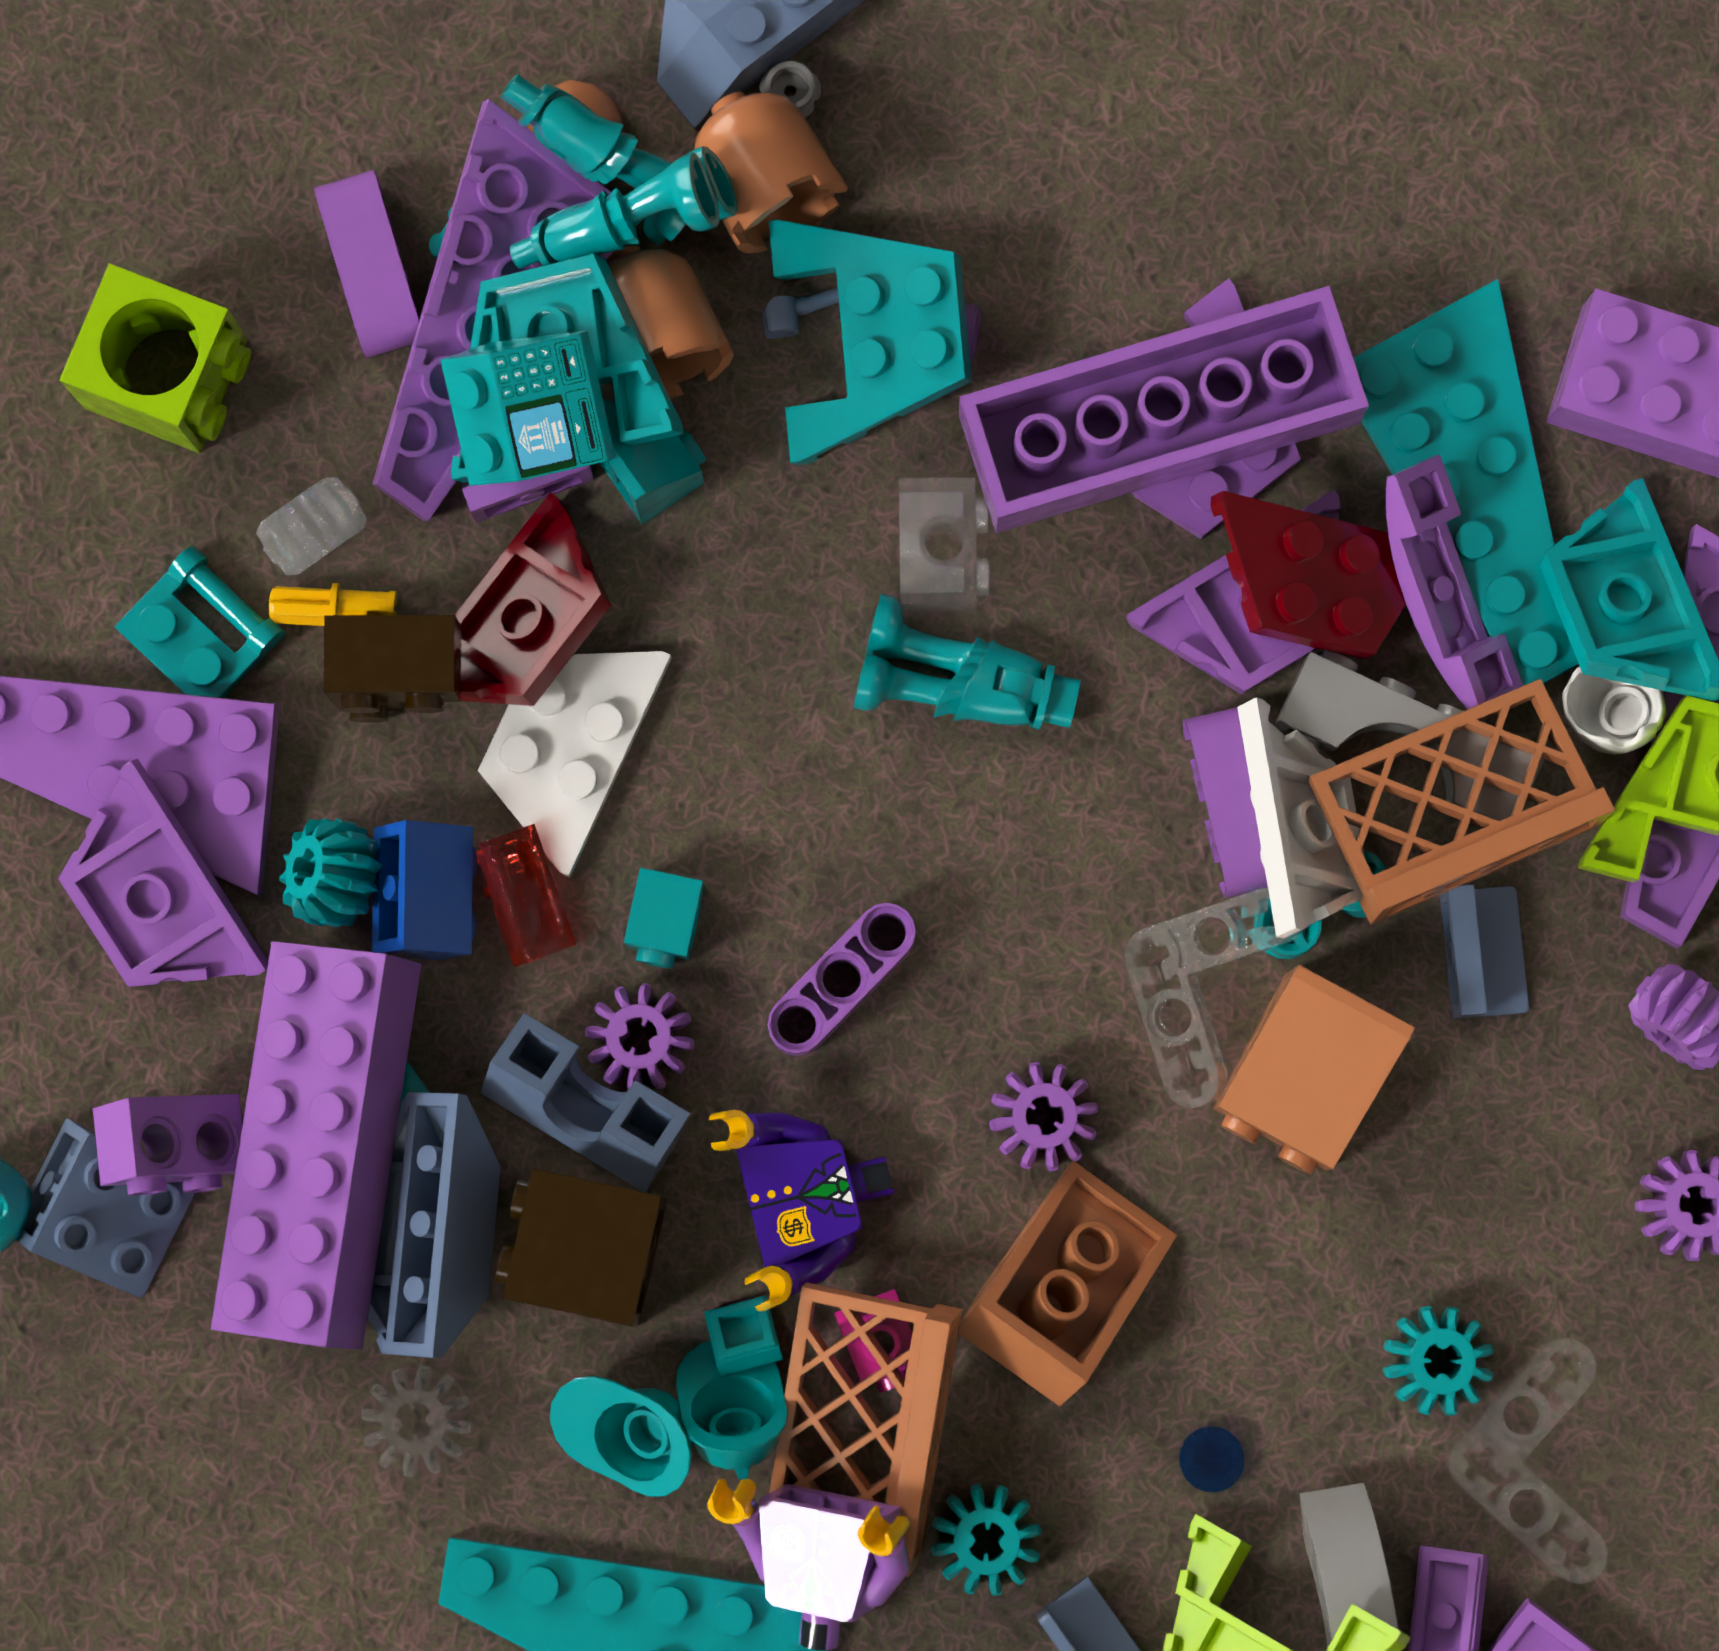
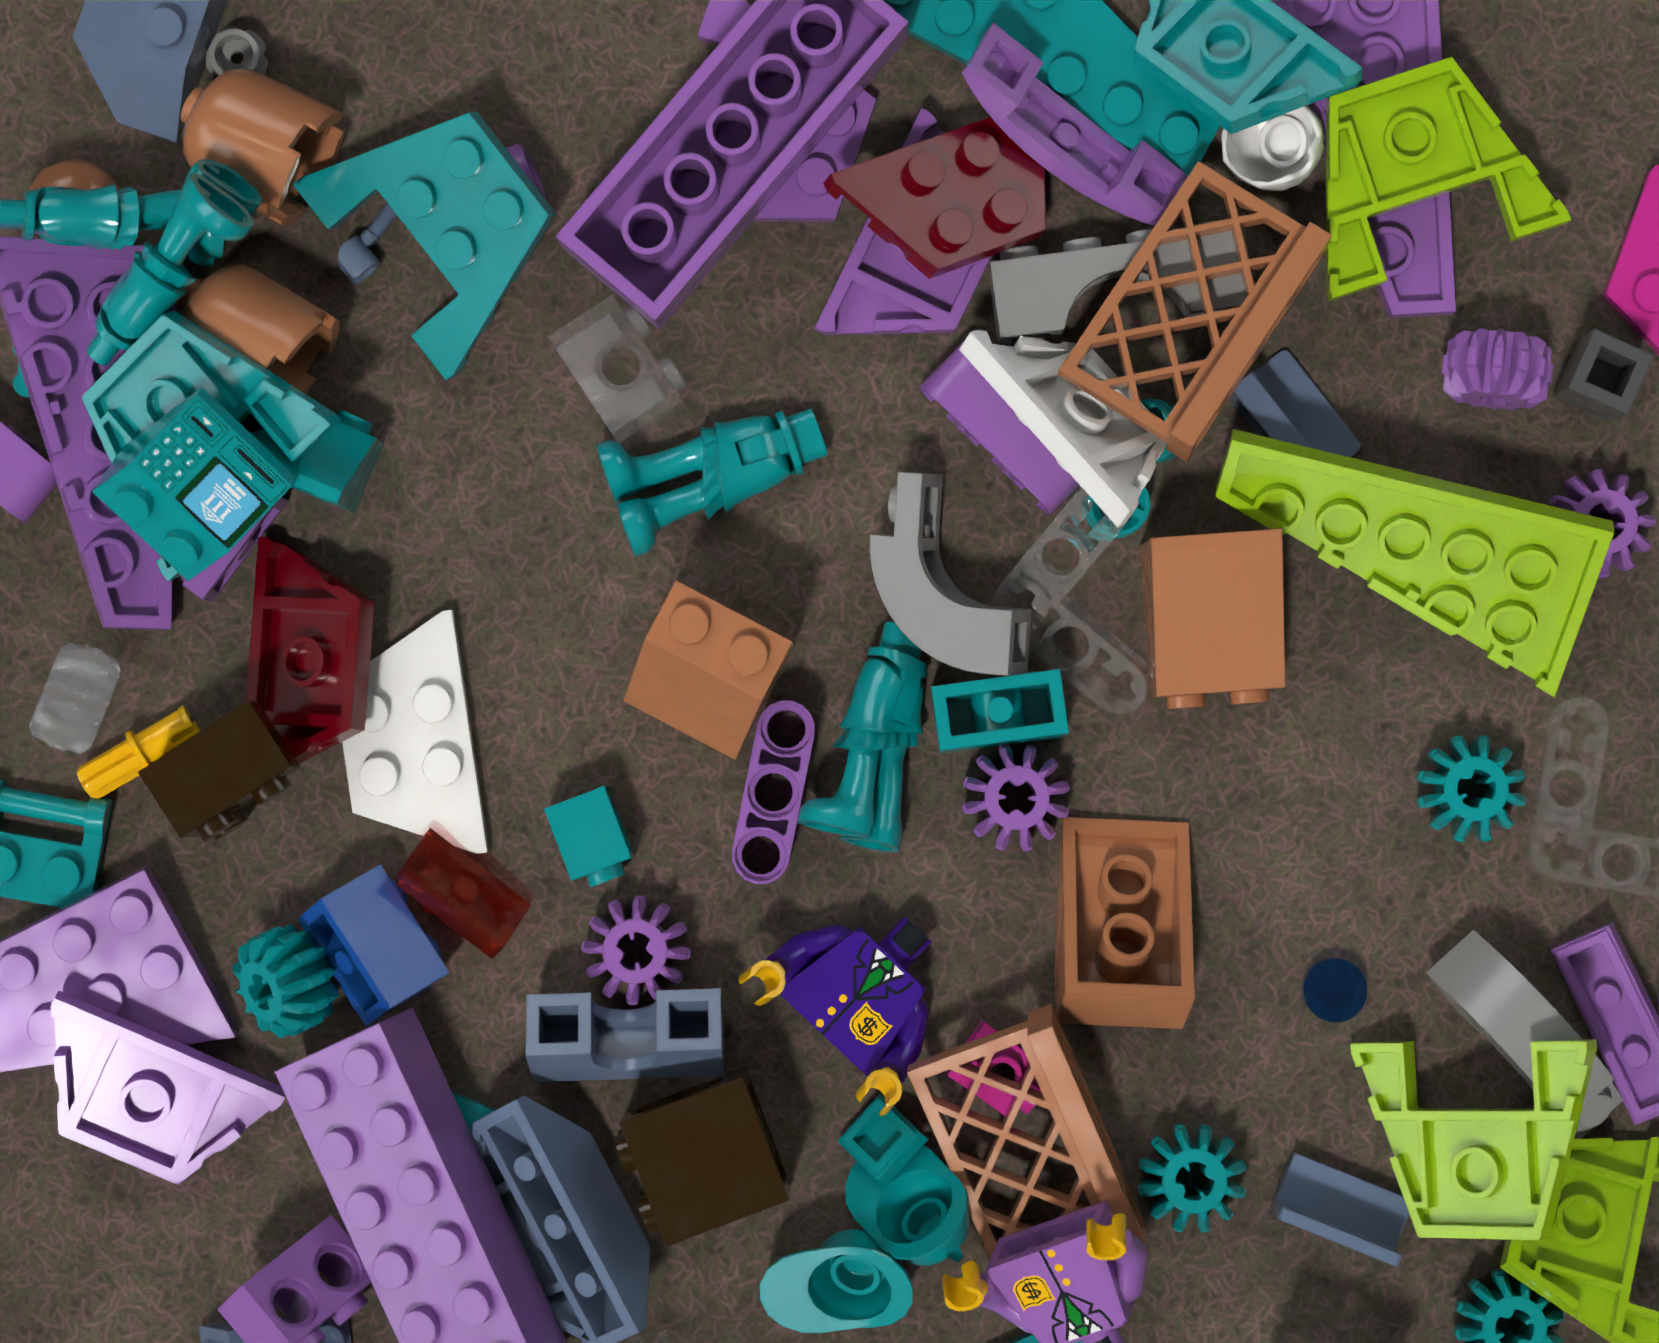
camera: 30 degrees left, 5 degrees up
(853, 839) = (706, 670): none -> nougat slope
(965, 983) = (877, 732): none -> teal piece
(1074, 903) = (925, 599): none -> light grey arch
(1076, 1033) = (999, 711): none -> teal brick
(1547, 1146) = (1448, 552): none -> lime wing

